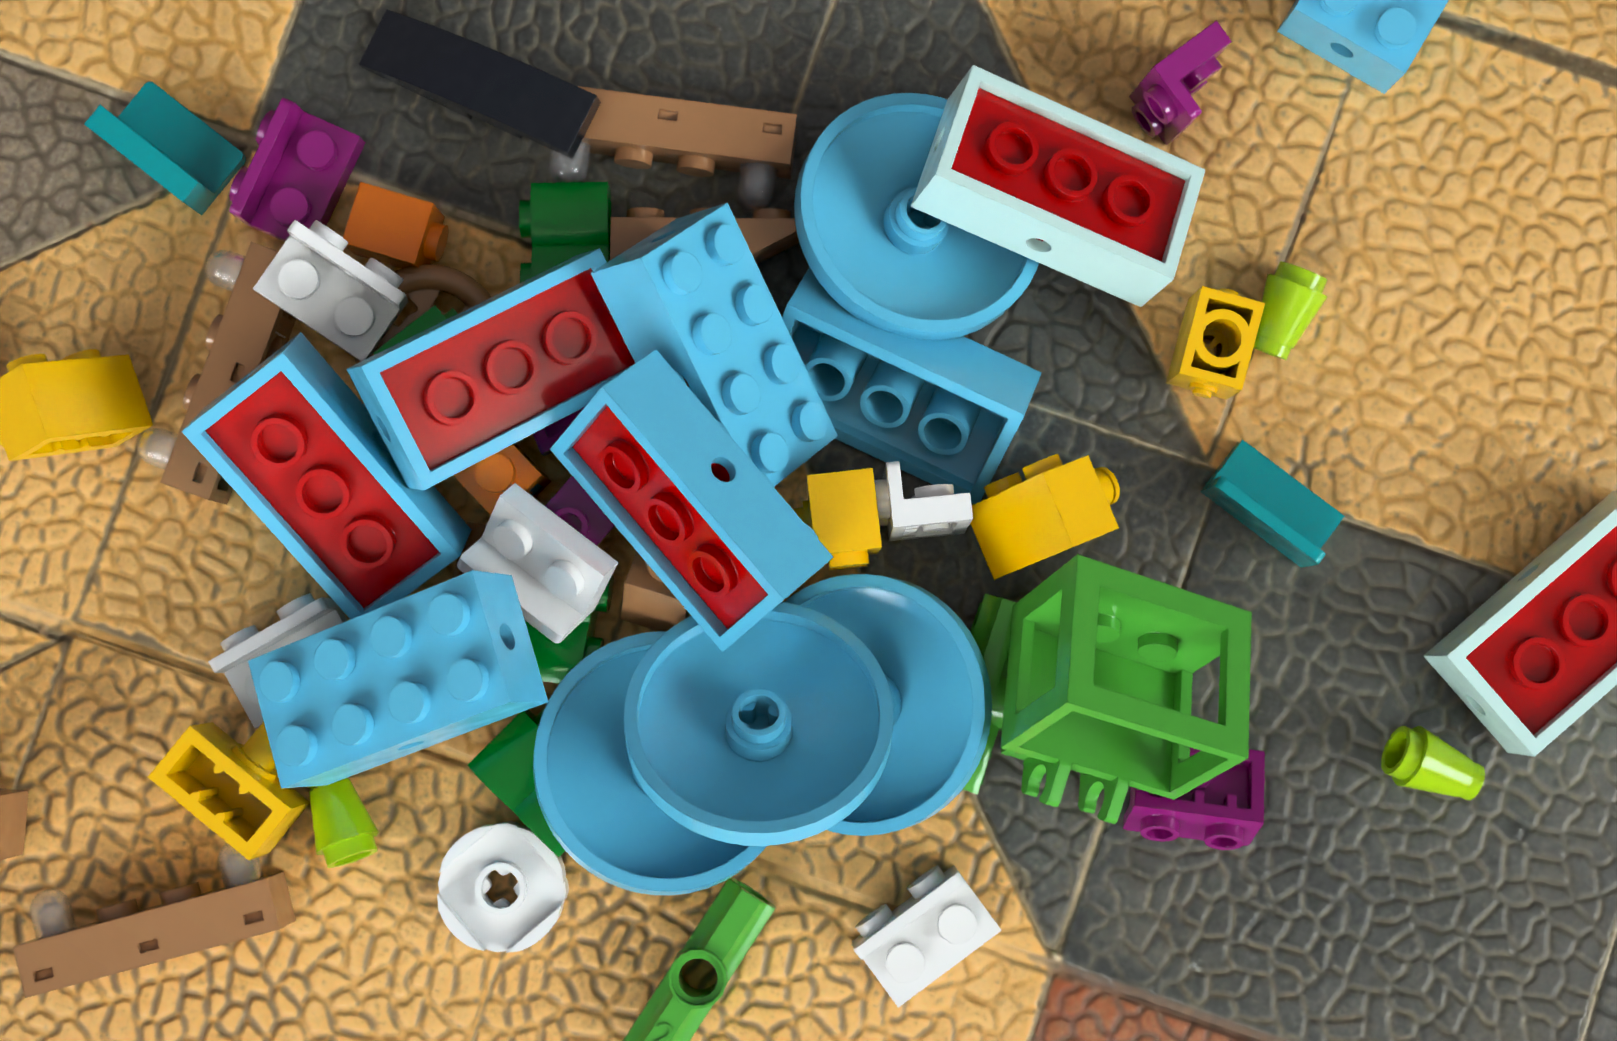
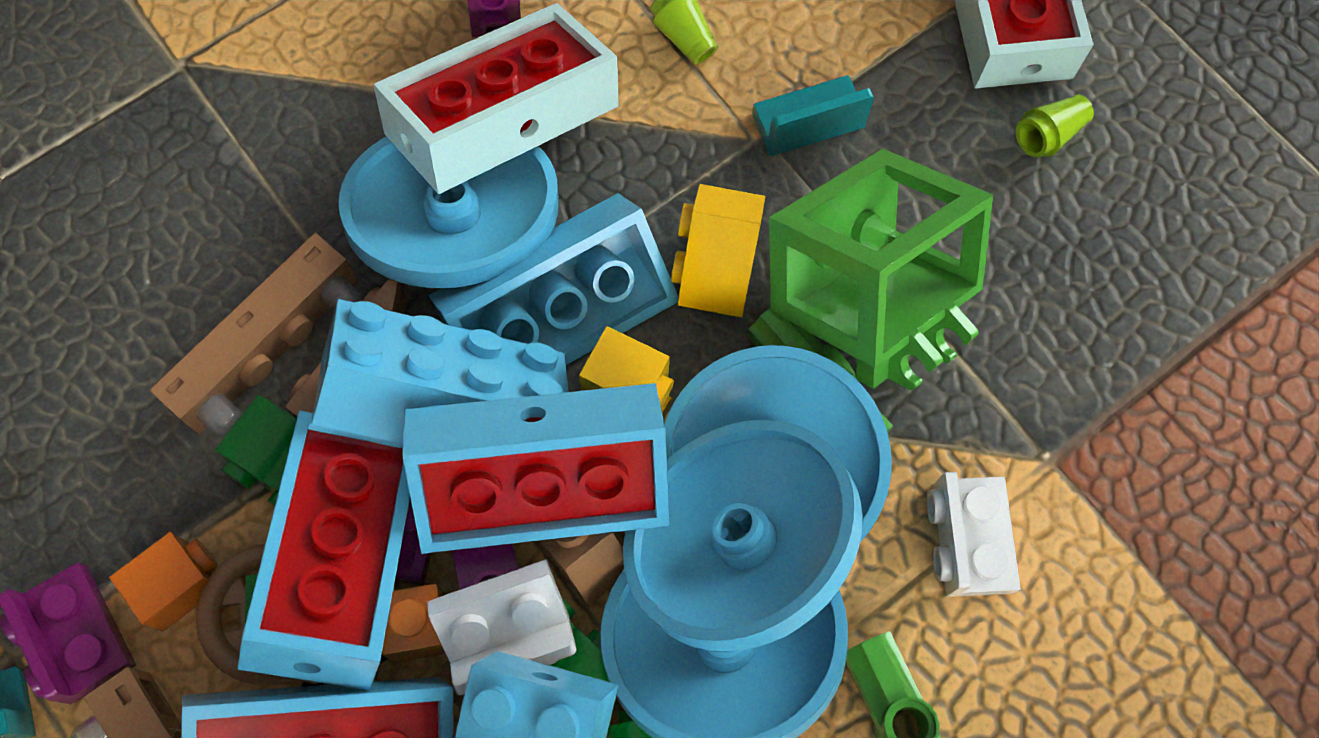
camera: 60 degrees left, 15 degrees down
(332, 290) = (169, 652): white bracket -> none
(480, 82) = (110, 440): black slope -> none
(927, 514) = (666, 315): white bracket -> none
(1219, 812) = (1008, 277): magenta bracket -> none
(1231, 326) = (677, 73): yellow head -> none

